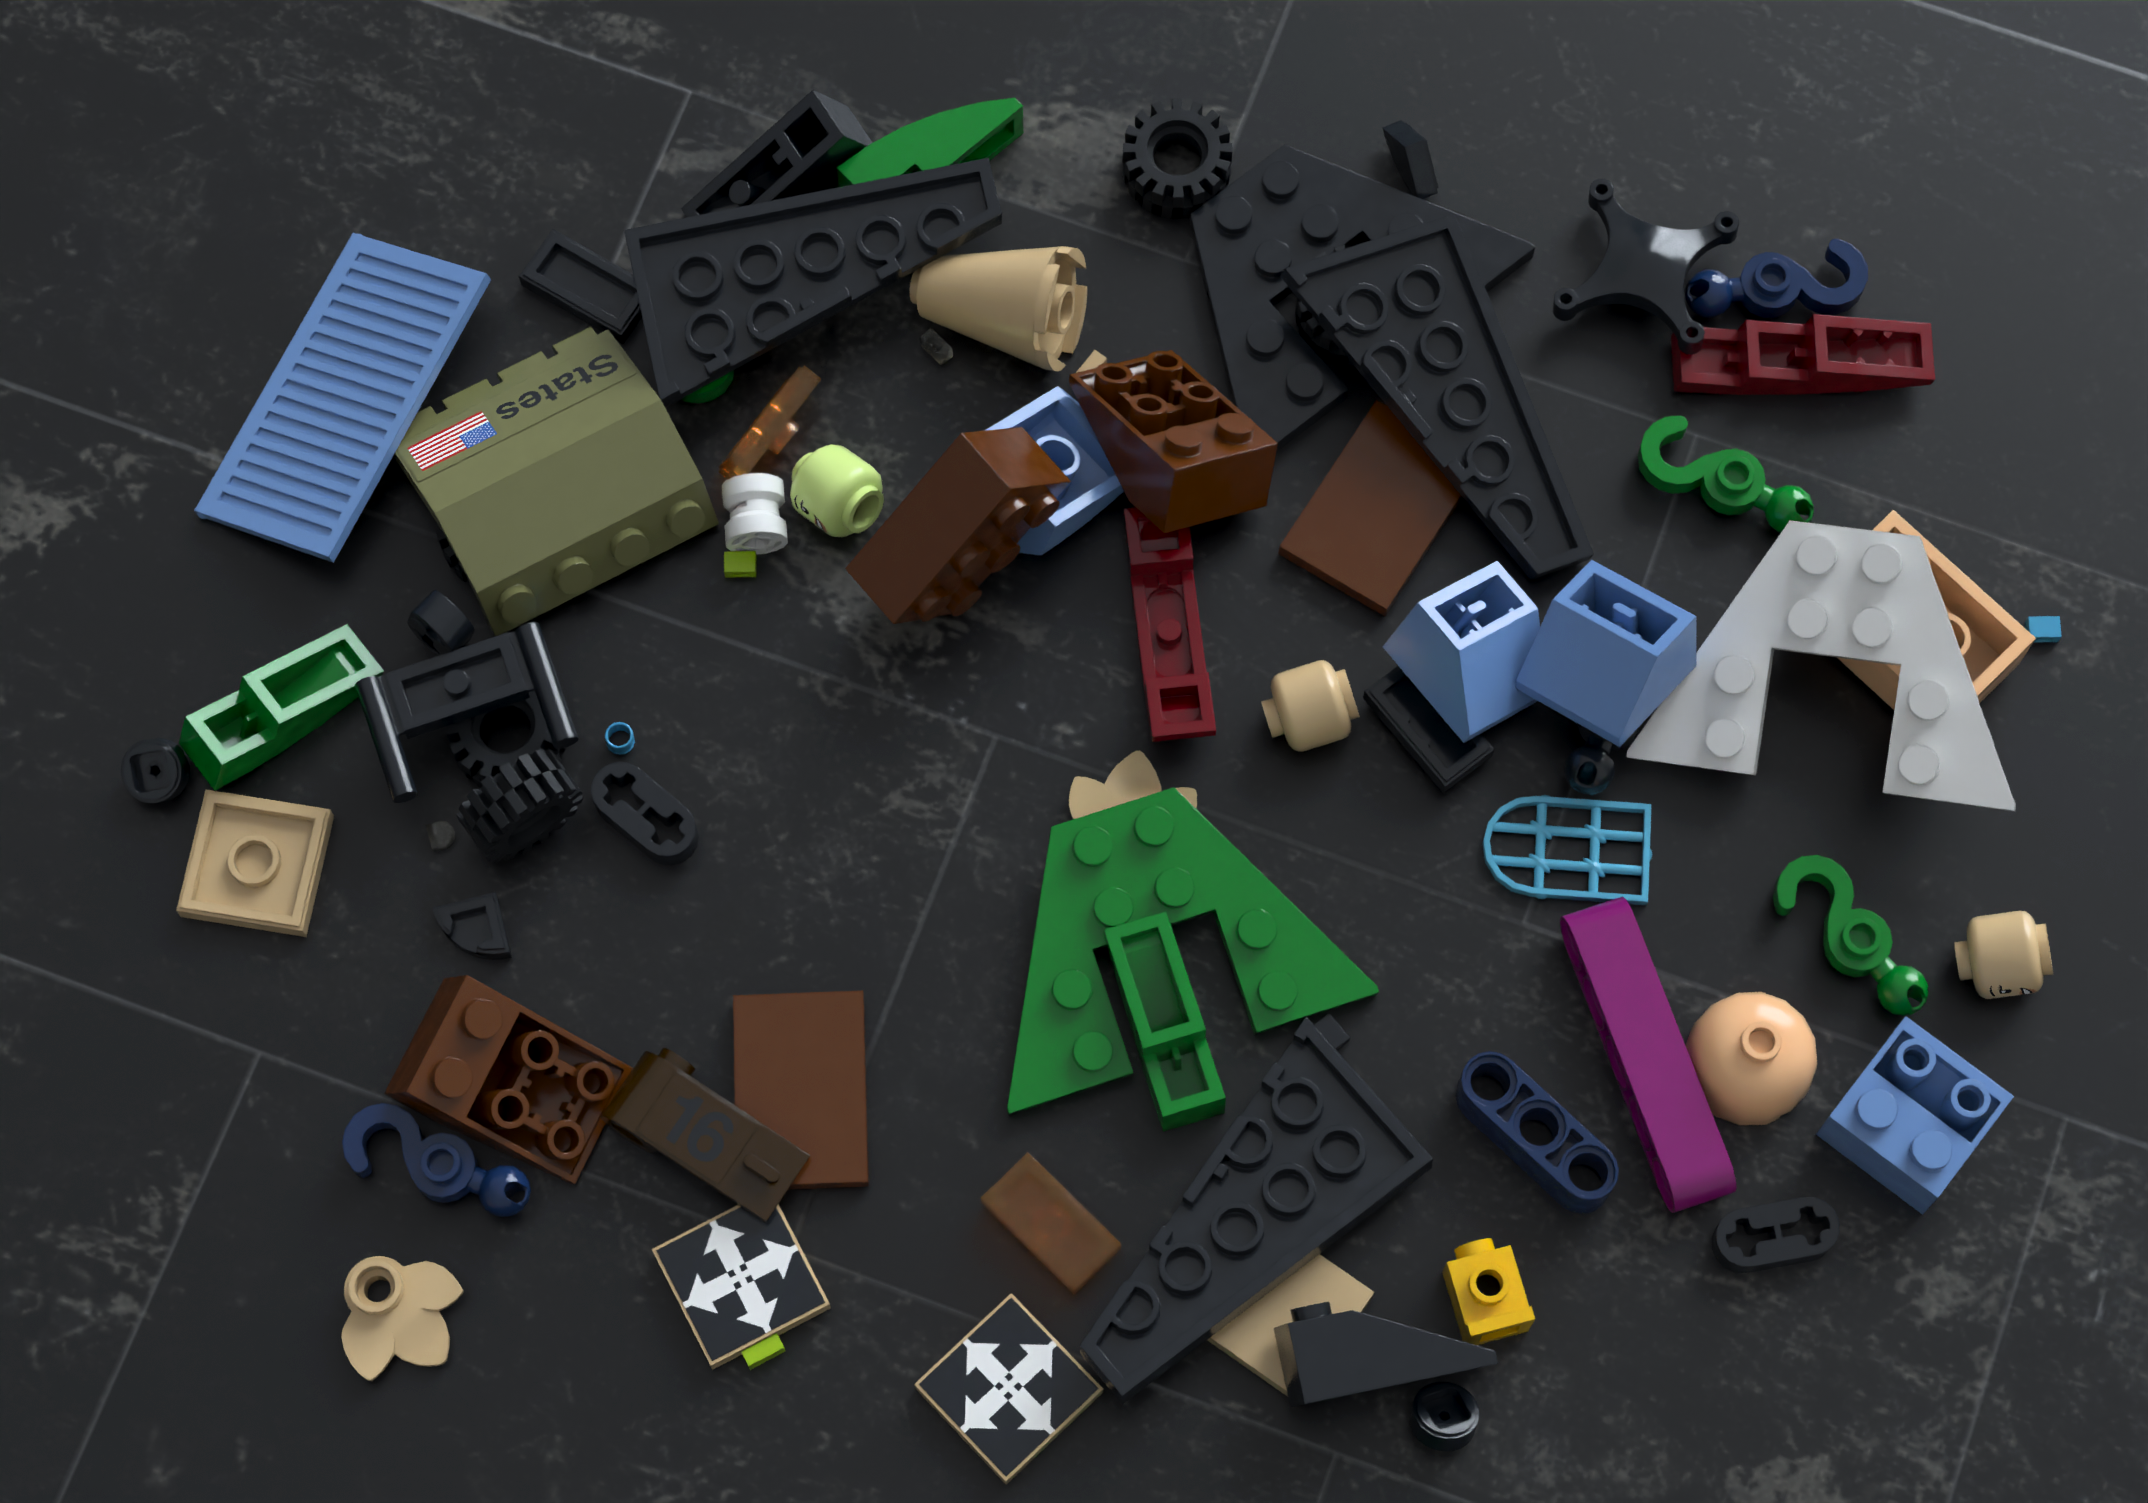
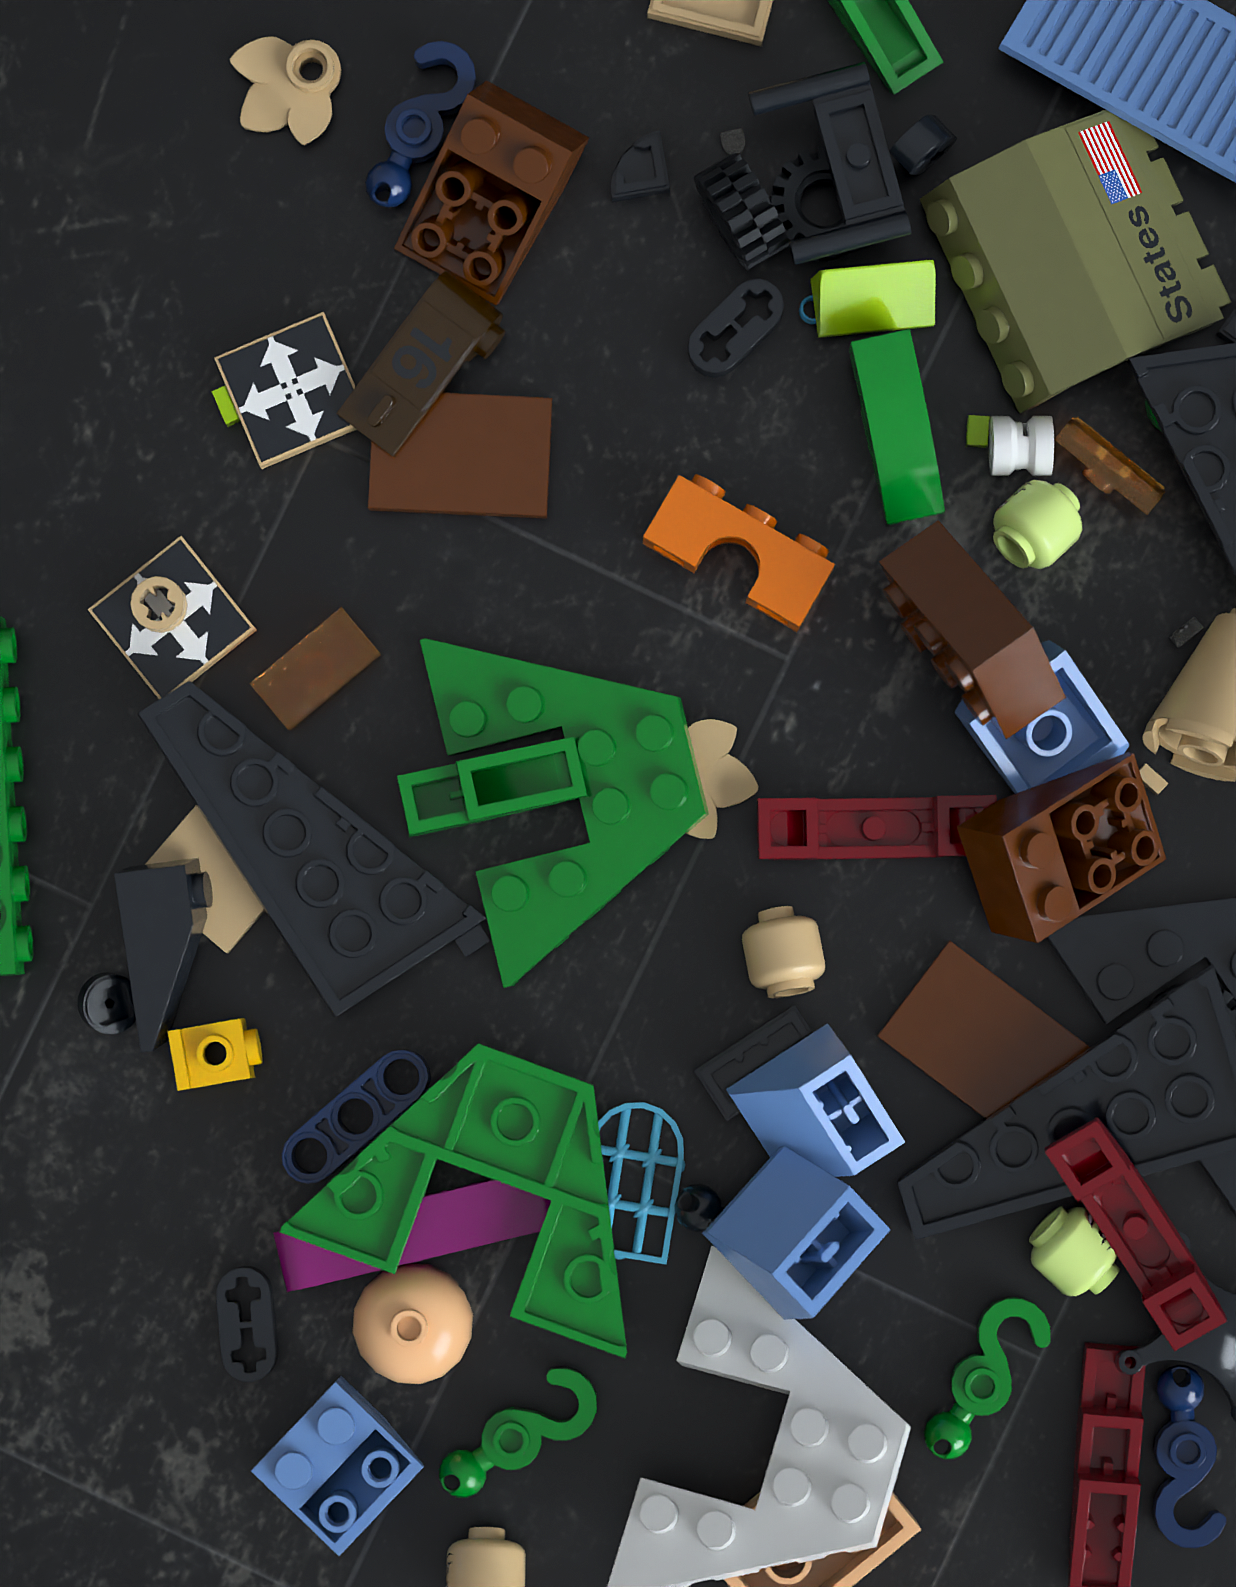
camera: 100 degrees right, 15 degrees up
(606, 671) = (874, 298): none -> lime slope
(741, 637) = (897, 426): none -> green slope
(906, 736) = (698, 519): none -> orange arch
(984, 1378) = (174, 595): none -> tan bush
(1531, 956) = (513, 1127): none -> green wing
(1563, 327) = (1138, 1232): none -> dark red slope
(1585, 398) = (1073, 1252): none -> yellowish green head

